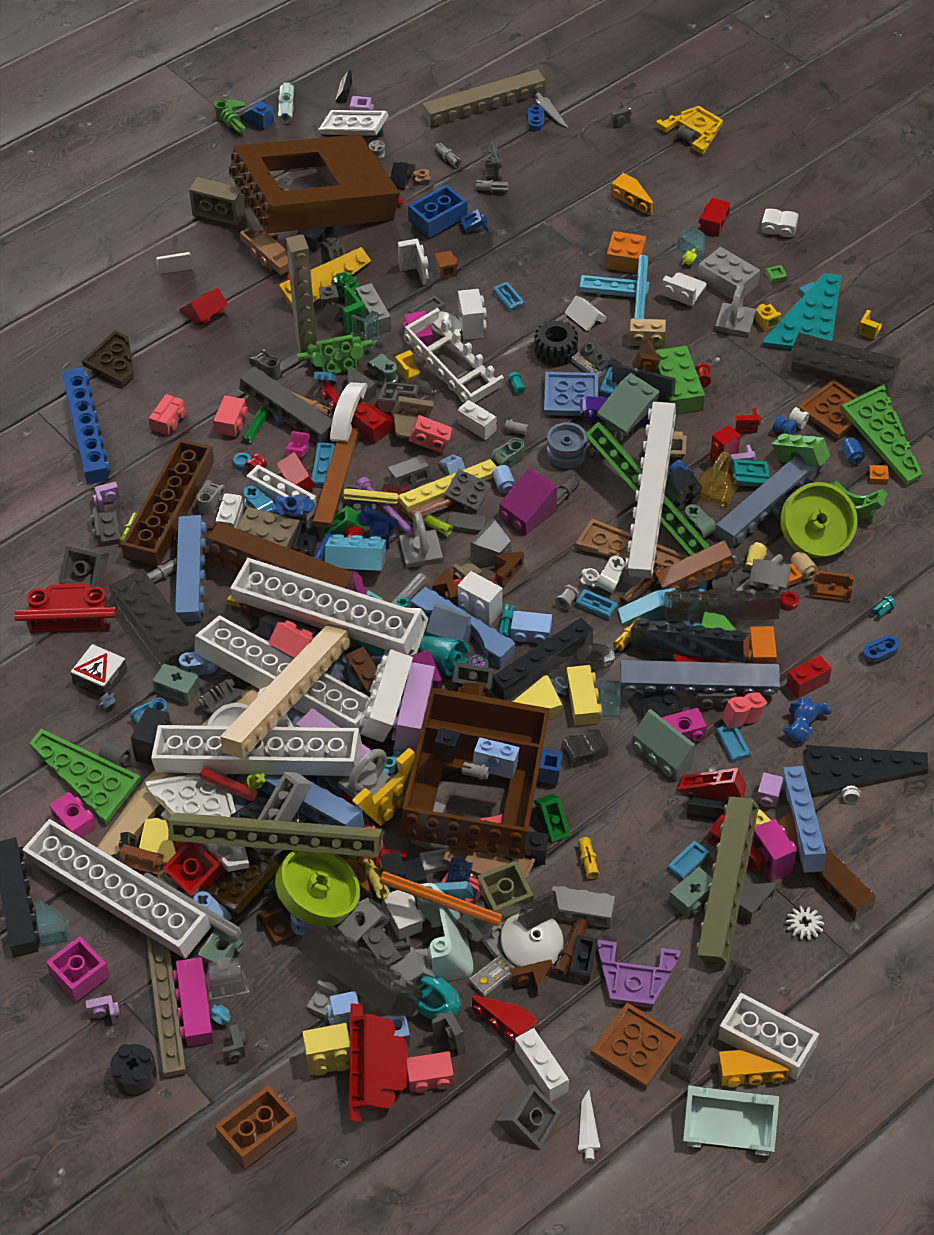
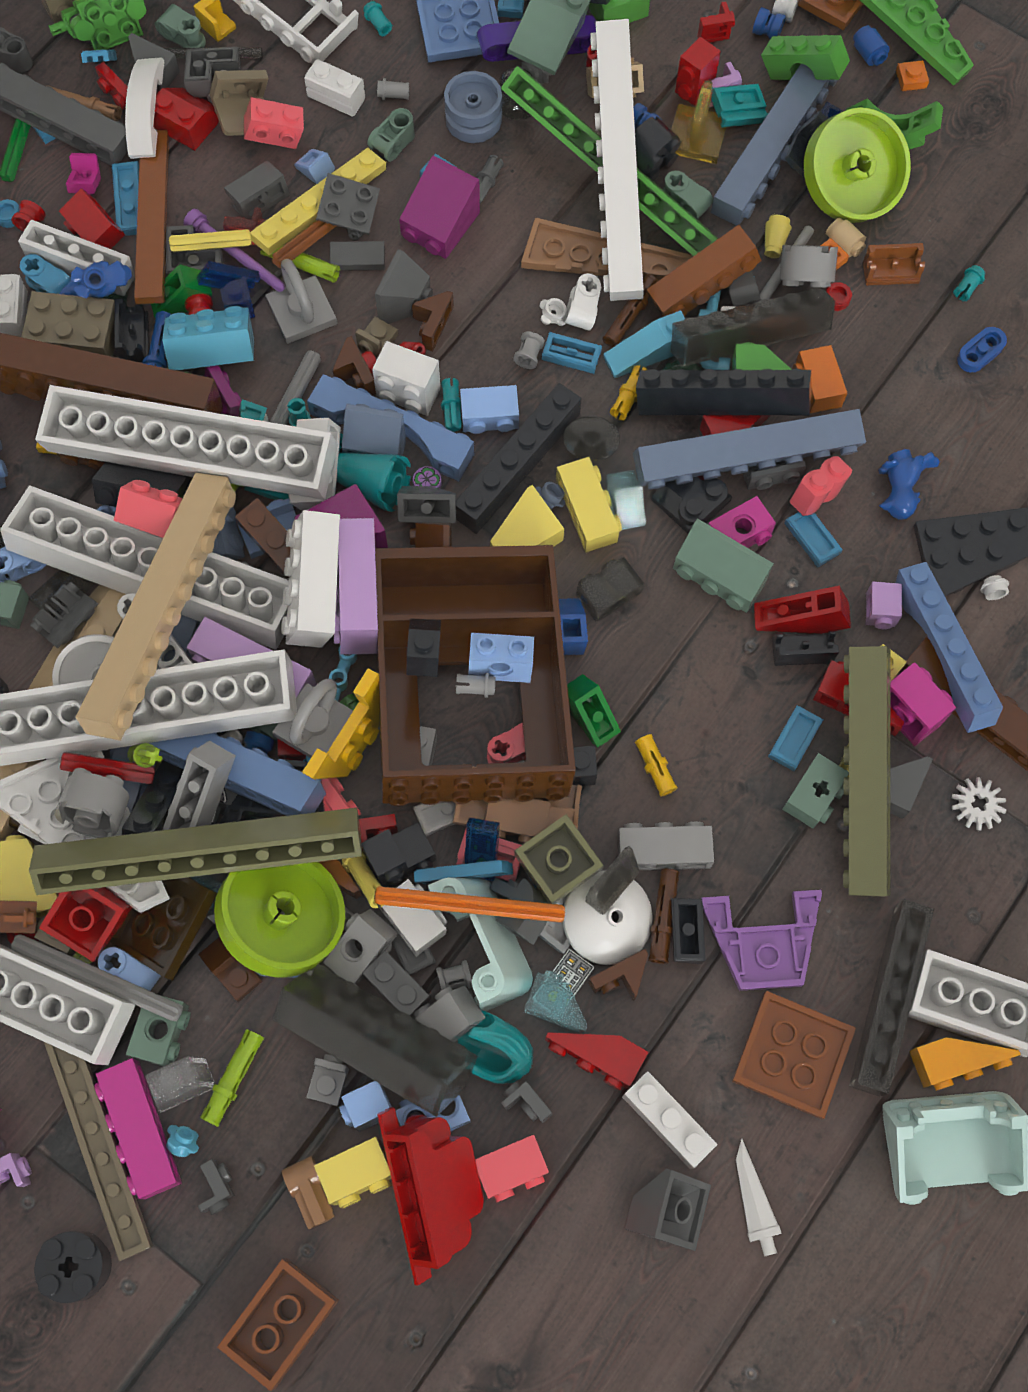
camera: 15 degrees left, 20 degrees up
(215, 796) = (92, 803): none -> light grey brick
(255, 992) = (235, 1071): none -> lime pin
(294, 1056) = (307, 1189): none -> medium nougat piece
(481, 979) = (554, 1002): none -> clear light blue slope
(503, 479) = (395, 176): light blue brick -> none
(808, 676) = (895, 413): red brick -> none

